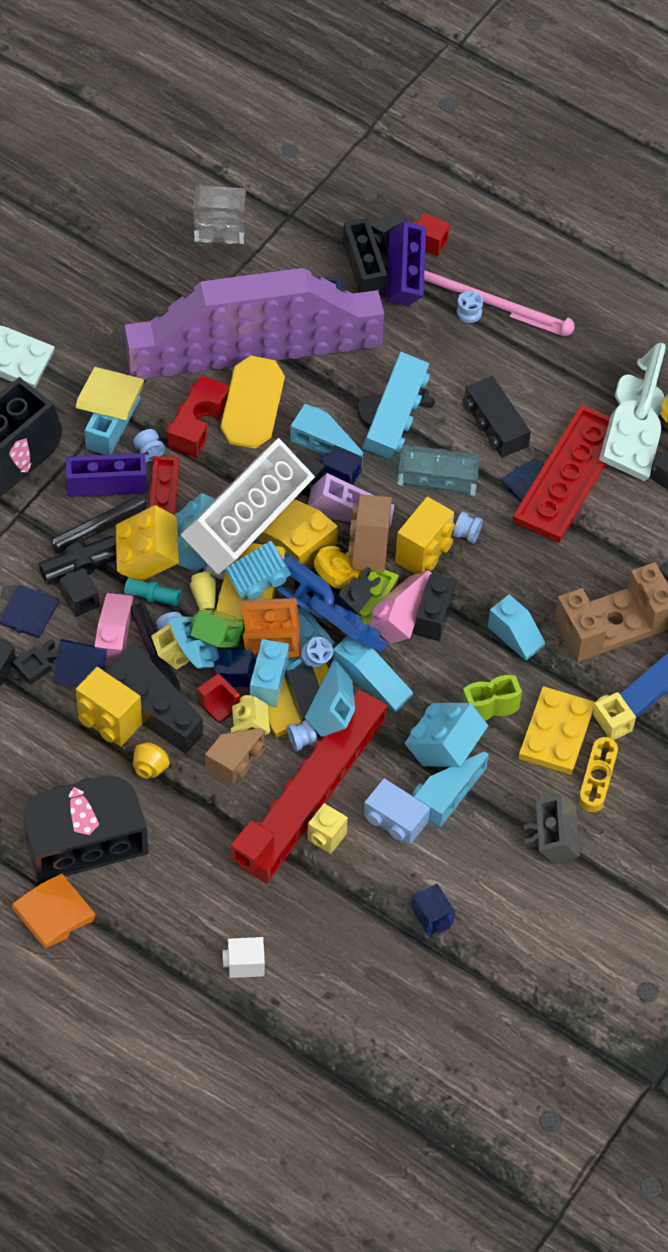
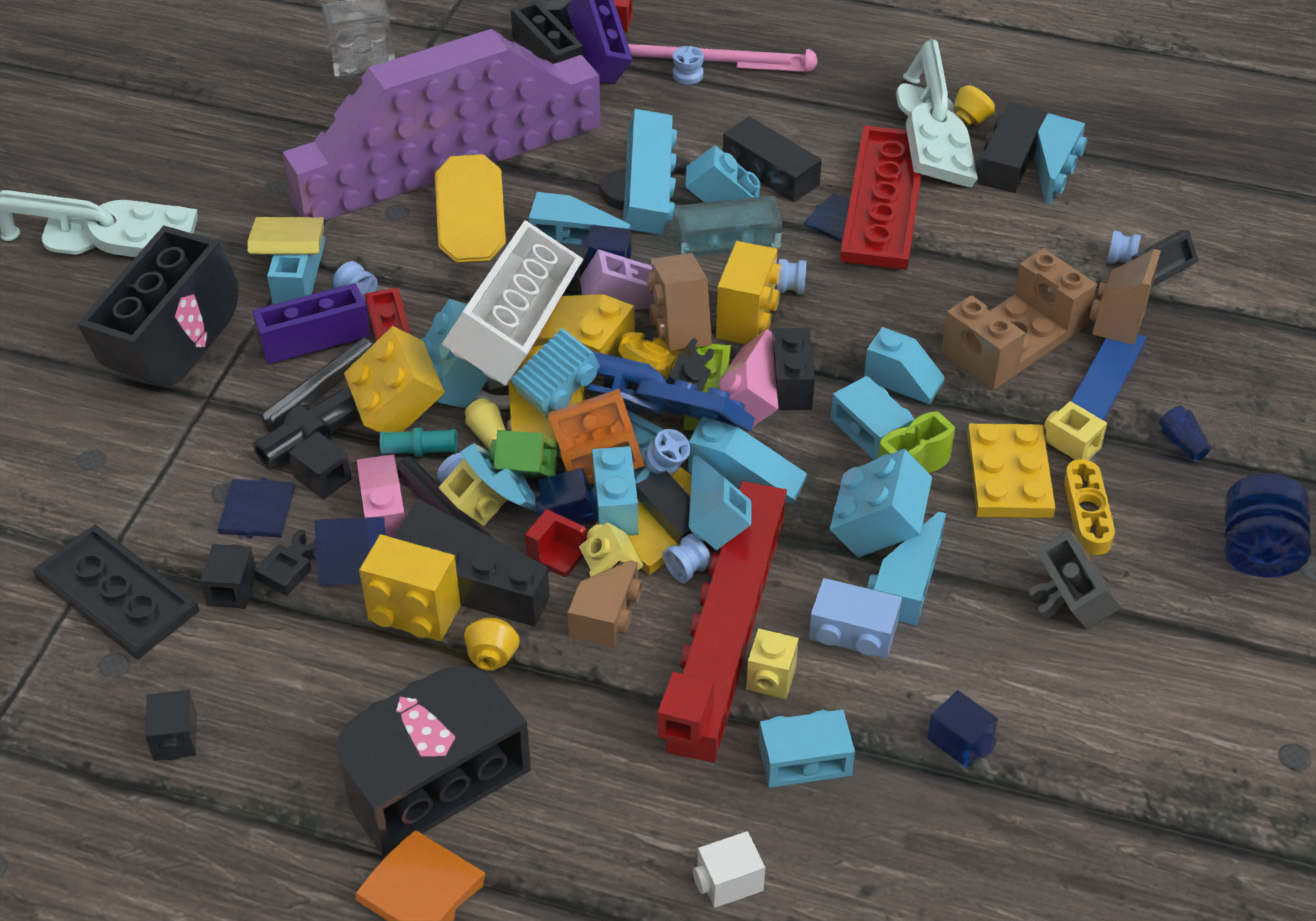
camera: 15 degrees left, 10 degrees down
(204, 399) = (401, 245): red arch -> none
(325, 892) = (806, 748): none -> medium azure brick
(450, 427) = (719, 178): none -> medium azure slope
(474, 658) = (867, 414): none -> medium azure brick

